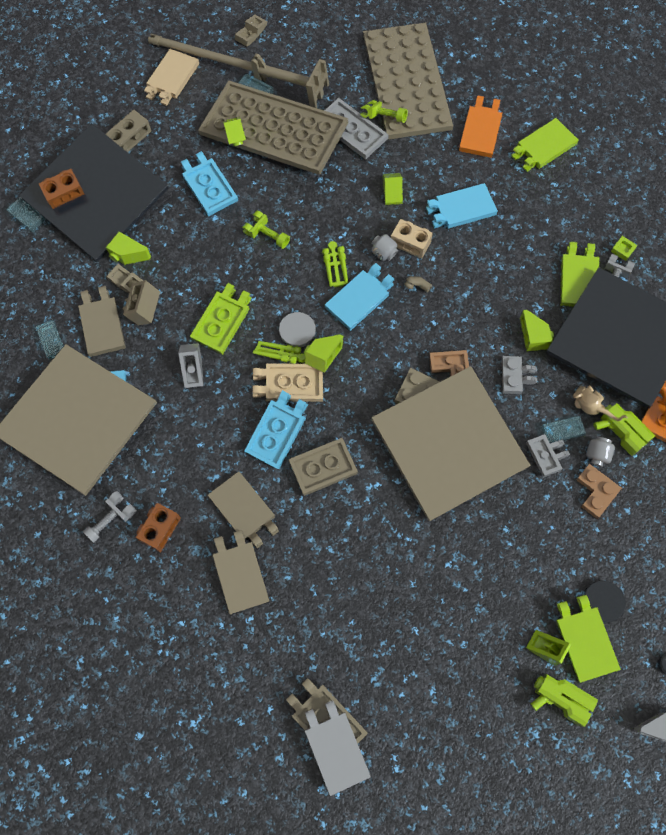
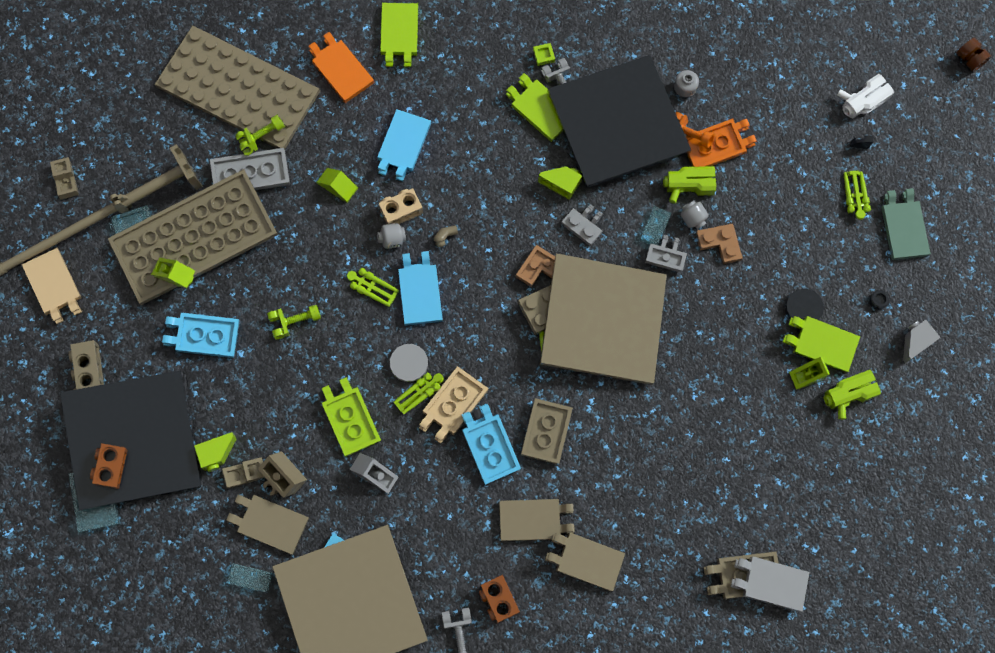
camera: 60 degrees left, 5 degrees up
(323, 352) = (449, 358): lime slope -> none
(591, 402) = (652, 188): tan animal -> none

